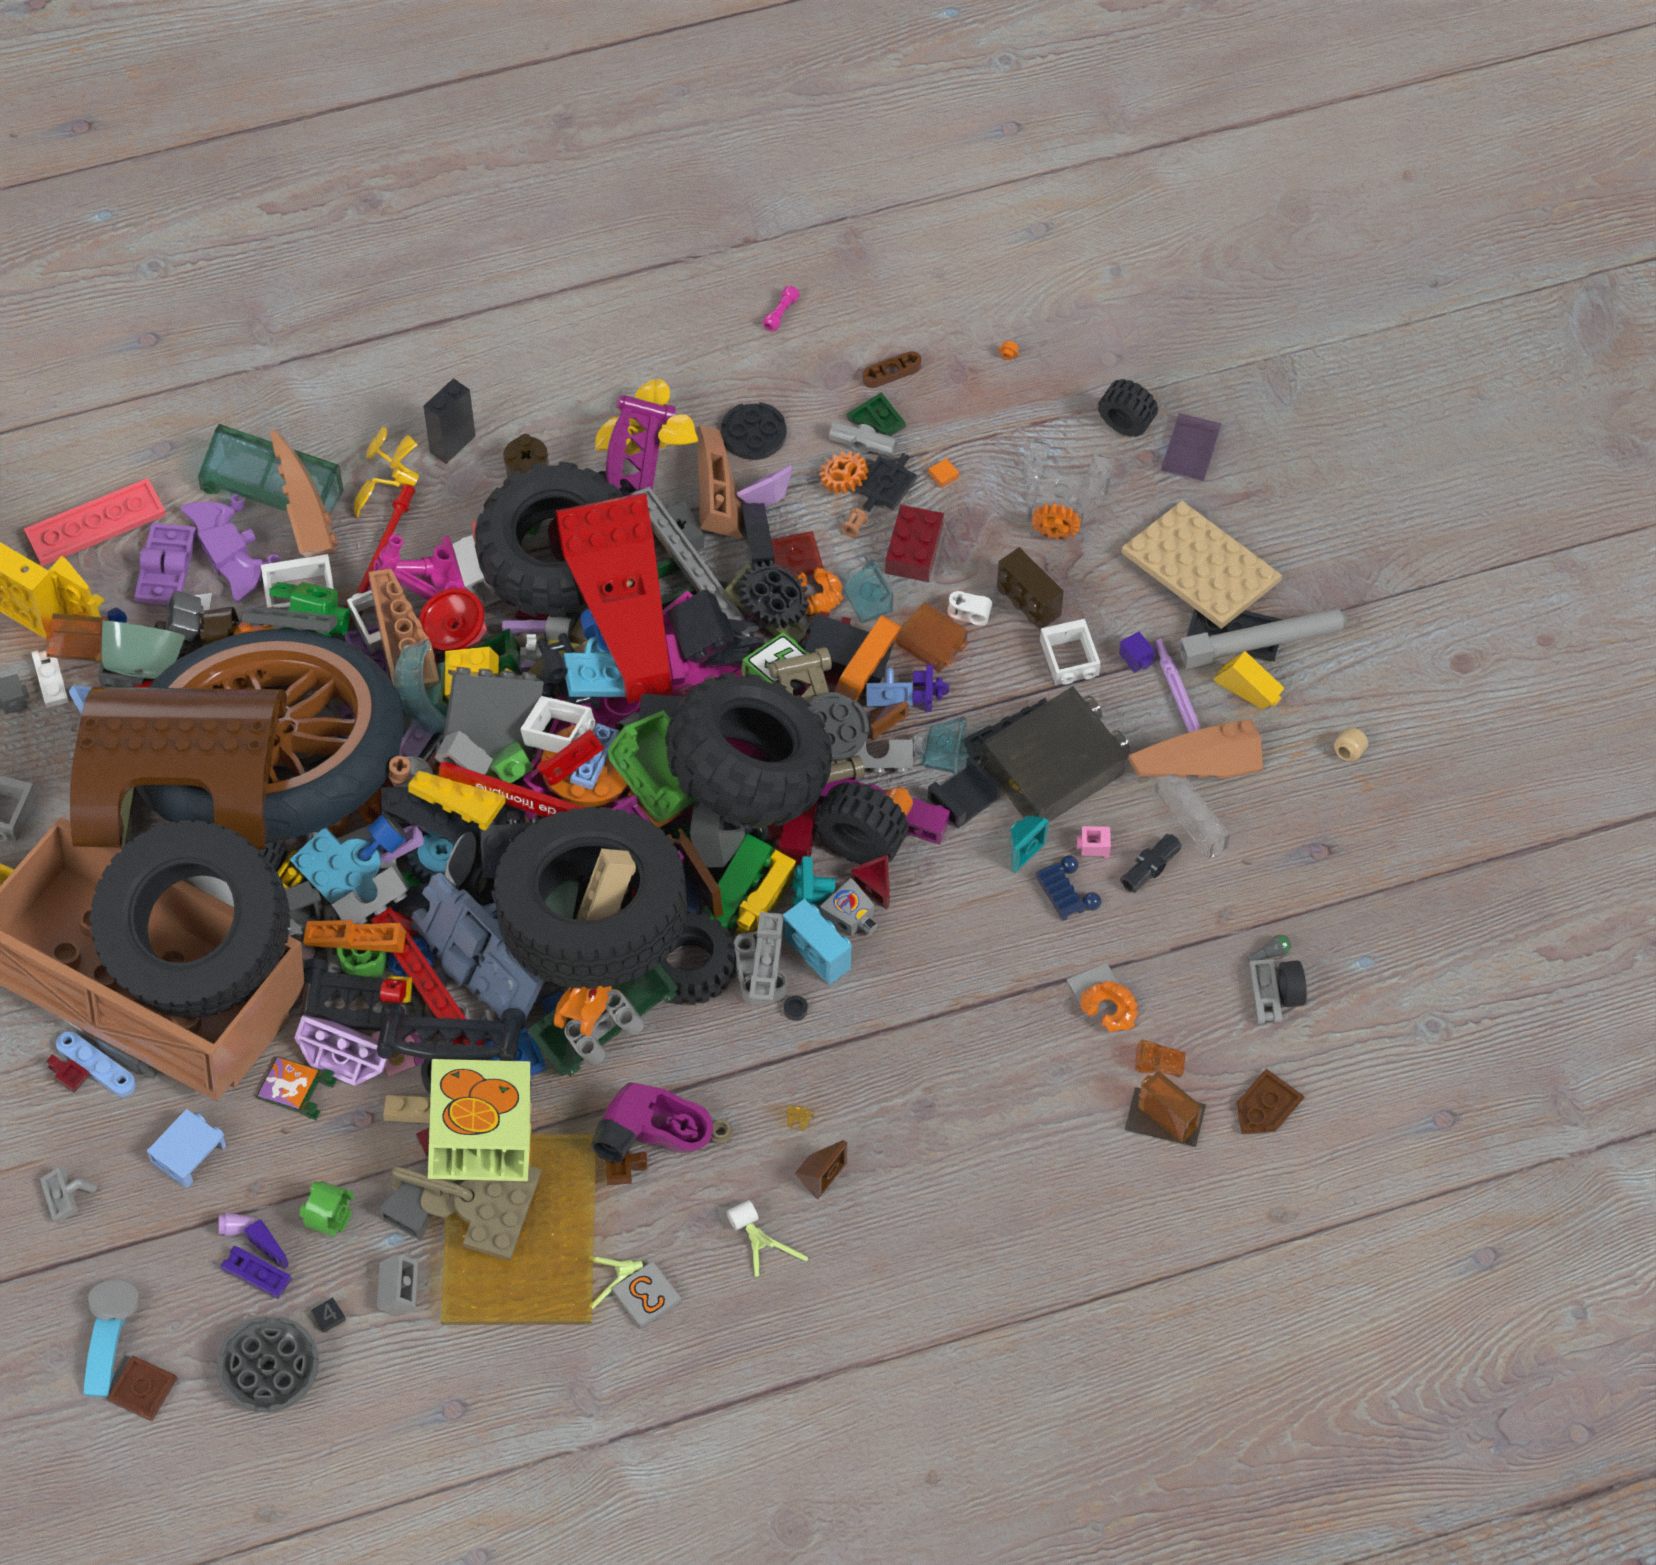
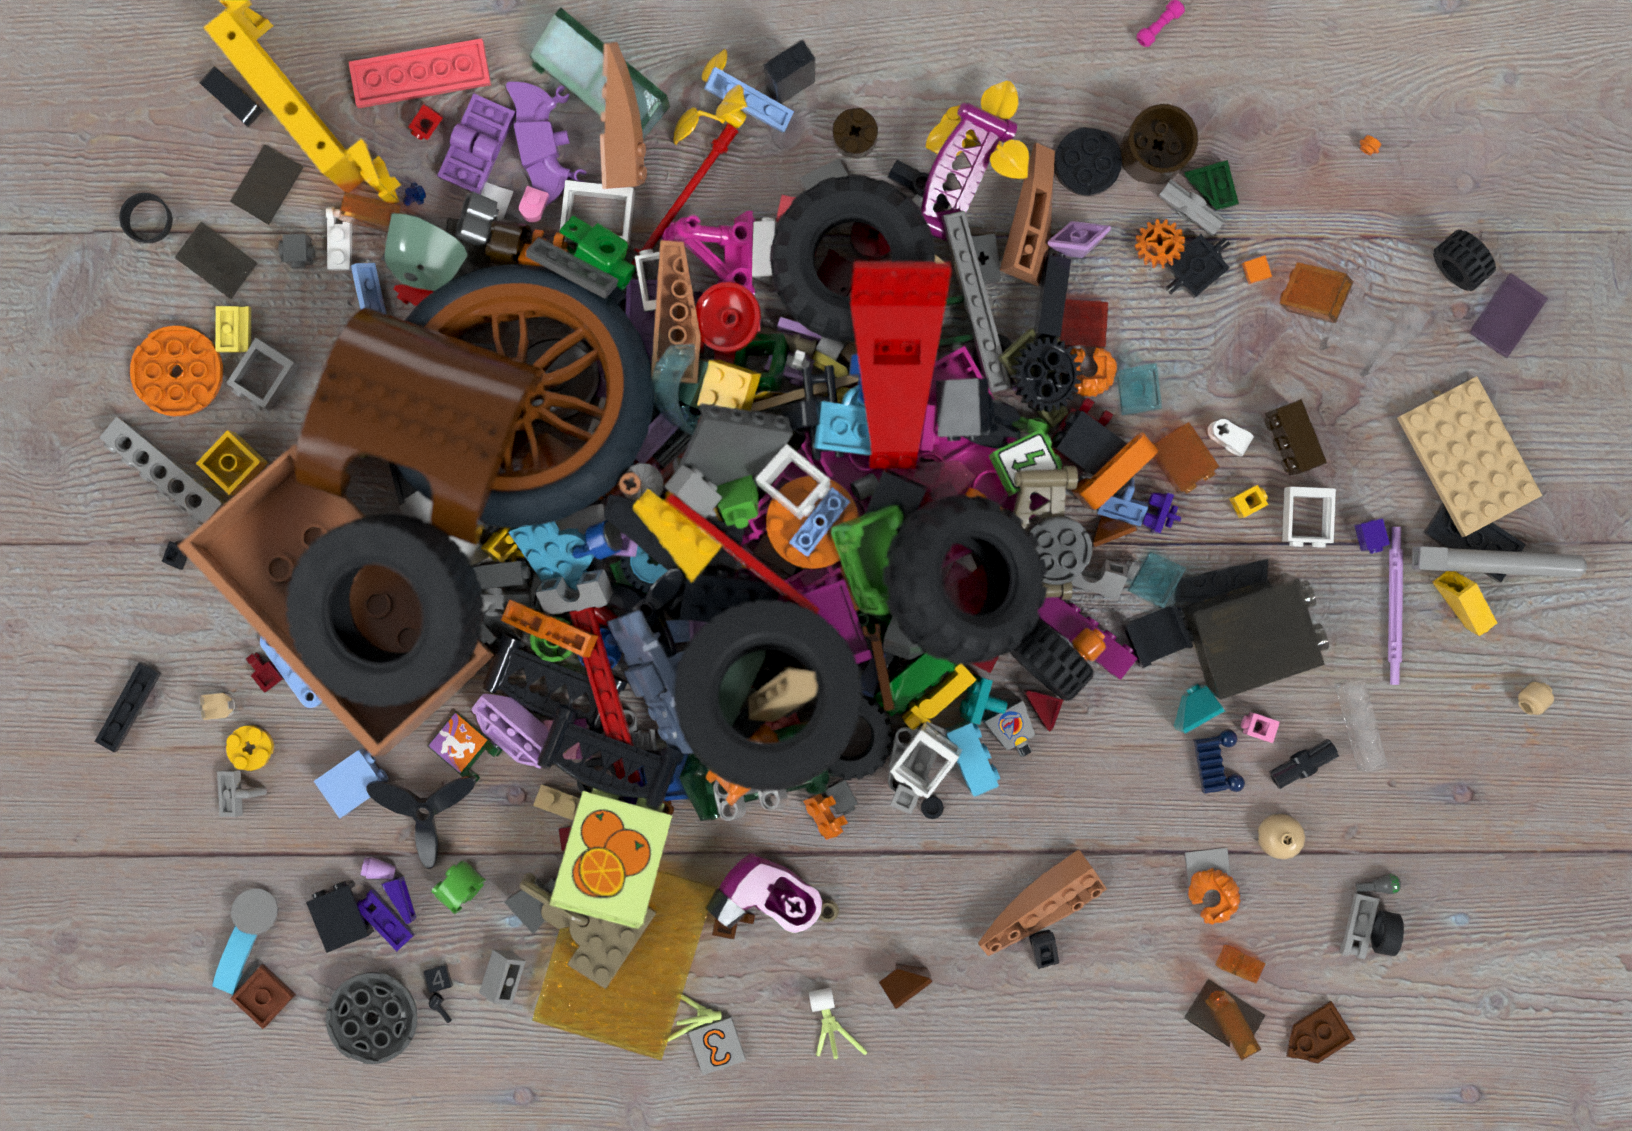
camera: 15 degrees right, 30 degrees up
(26, 1116) = (216, 706): none -> tan piece
(66, 1136) = (243, 759): none -> yellow plate
(114, 551) = (425, 113): none -> red brick
(207, 1279) = (338, 916): none -> black panel
(235, 593) = (533, 204): none -> bright pink plate
(285, 1133) = (407, 803): none -> black piece
(331, 1339) = (435, 1004): none -> black hand
(396, 989) = (570, 698): red leg -> none
(420, 458) = (758, 104): none -> light blue plate
(570, 758) = (794, 527): red plate -> none
(685, 1041) = (819, 809): none -> orange plate
(699, 1019) = (843, 796): none -> dark grey brick
(773, 917) = (937, 743): none -> white window
(800, 1113) = (903, 918): clear yellow tile -> none
(811, 392) = (1170, 130): none -> dark brown brick
(862, 519) = (1151, 303): nougat bush -> none
(898, 362) = (1263, 135): reddish brown beam -> none
(914, 543) = (1202, 346): dark red brick -> none
(941, 1056) = (1044, 902): none -> nougat wedge
(955, 1099) = (1044, 948): none -> black slope
(1002, 468) = (1316, 292): none -> clear orange brick
(1008, 655) = (1258, 498): none -> yellow brick
(1056, 521) = (1347, 370): orange gear -> none
(1155, 934) = (1281, 836): none -> tan cylinder
(1213, 751) = (1395, 677): nougat wedge -> none

